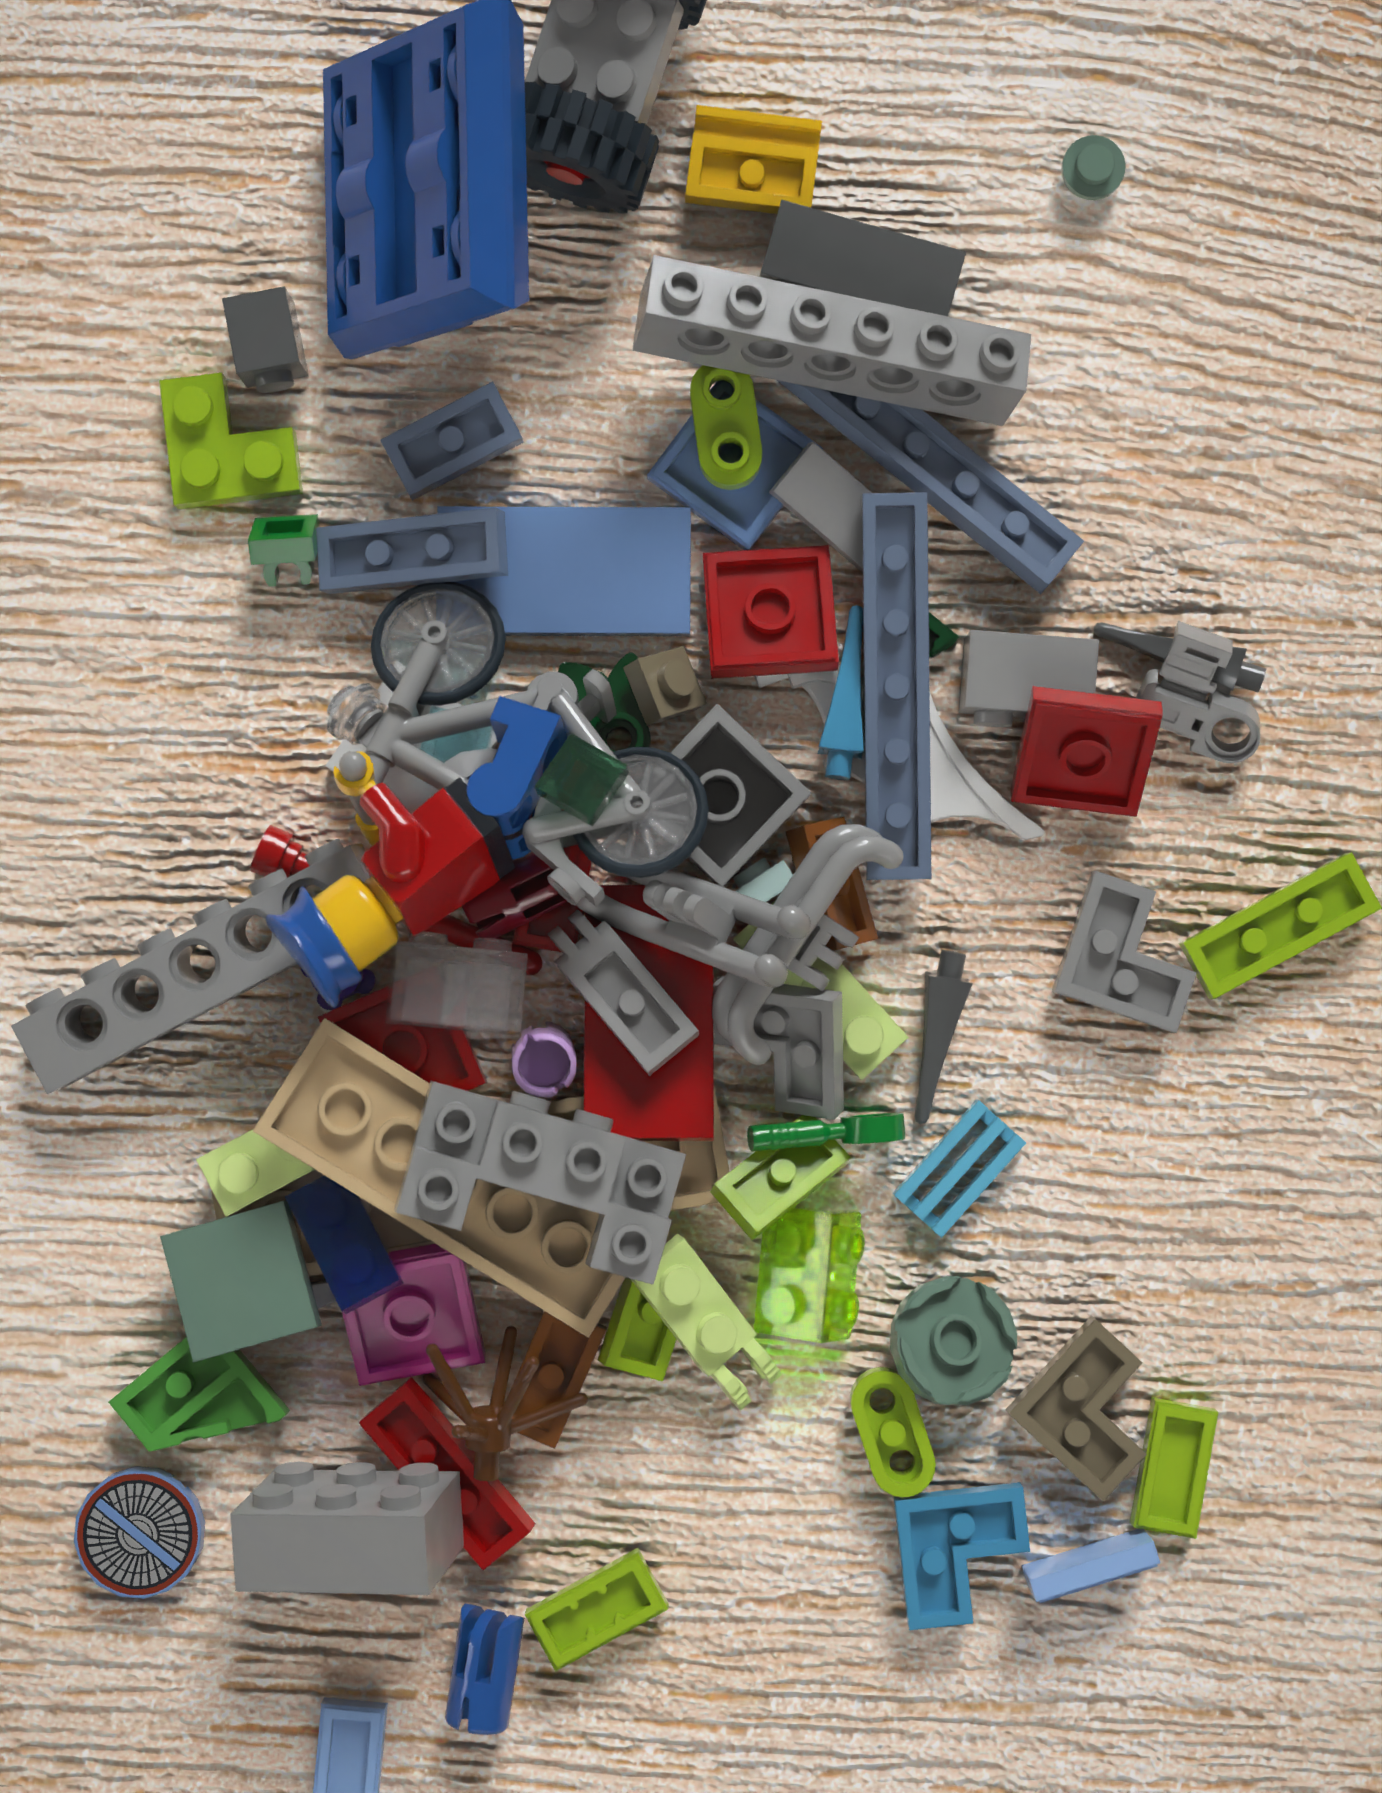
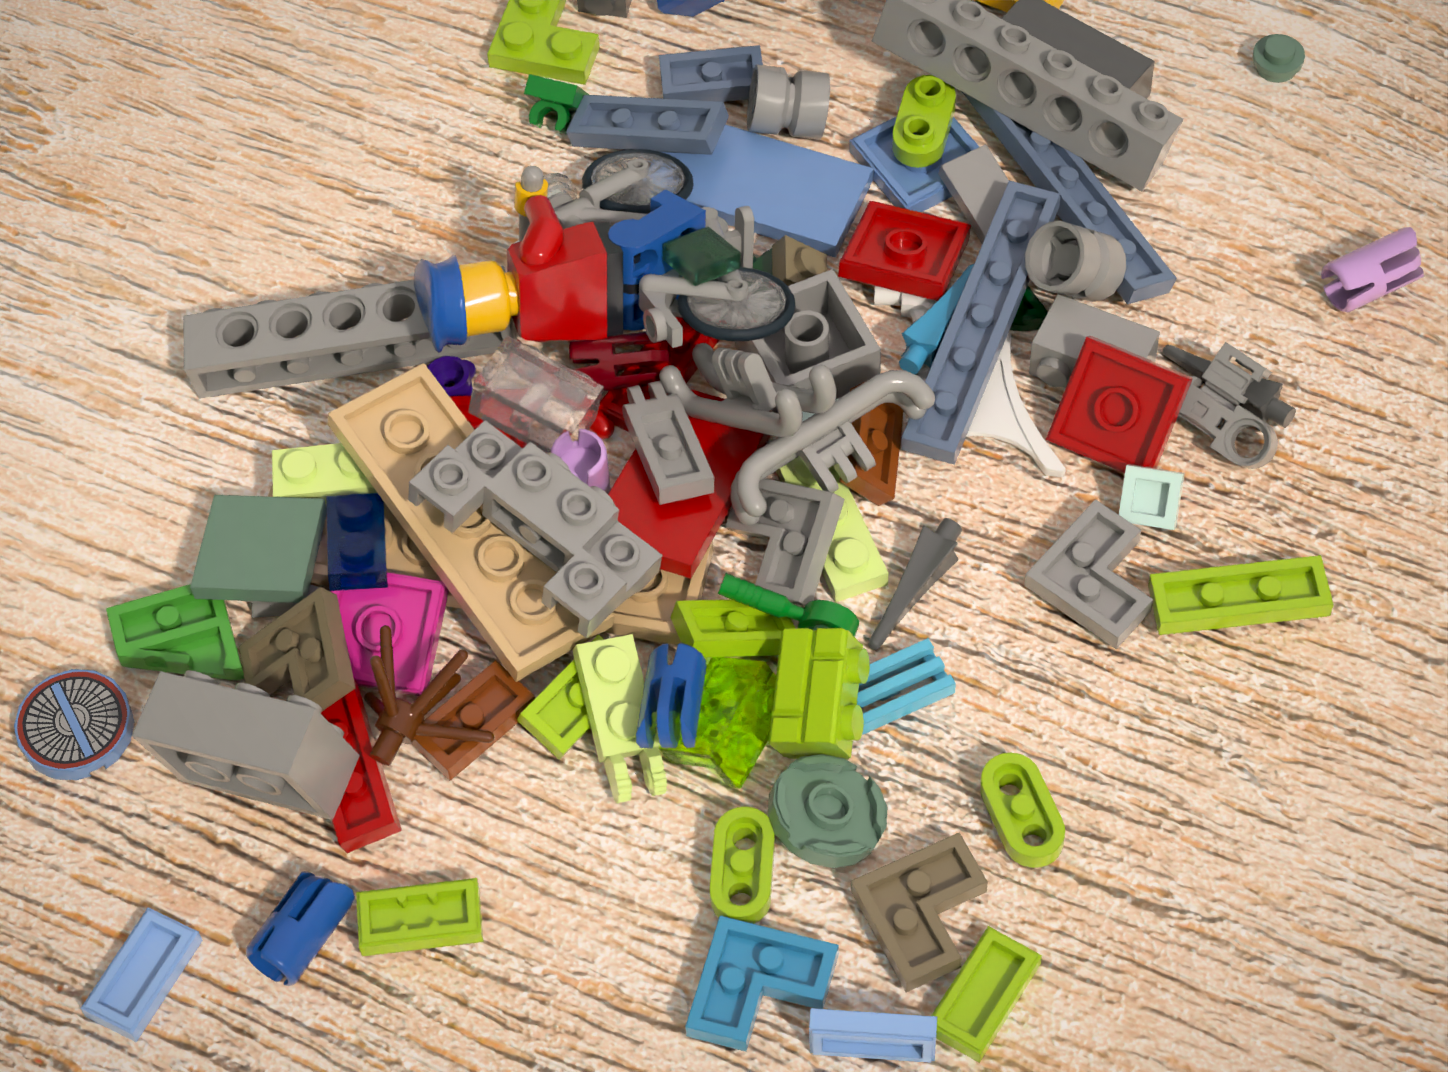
camera: 25 degrees right, 30 degrees down
(353, 1375) = (302, 647): none -> dark tan plate
(562, 460) = (788, 102): none -> light grey wheel
(752, 1282) = (671, 697): none -> blue arm
(899, 1226) = (818, 693): none -> lime brick
(976, 581) = (1075, 261): none -> light grey wheel
(1143, 1261) = (1022, 814): none -> lime plate
(1151, 841) = (1151, 496): none -> light aqua plate
(1295, 449) = (1373, 270): none -> lavender arm

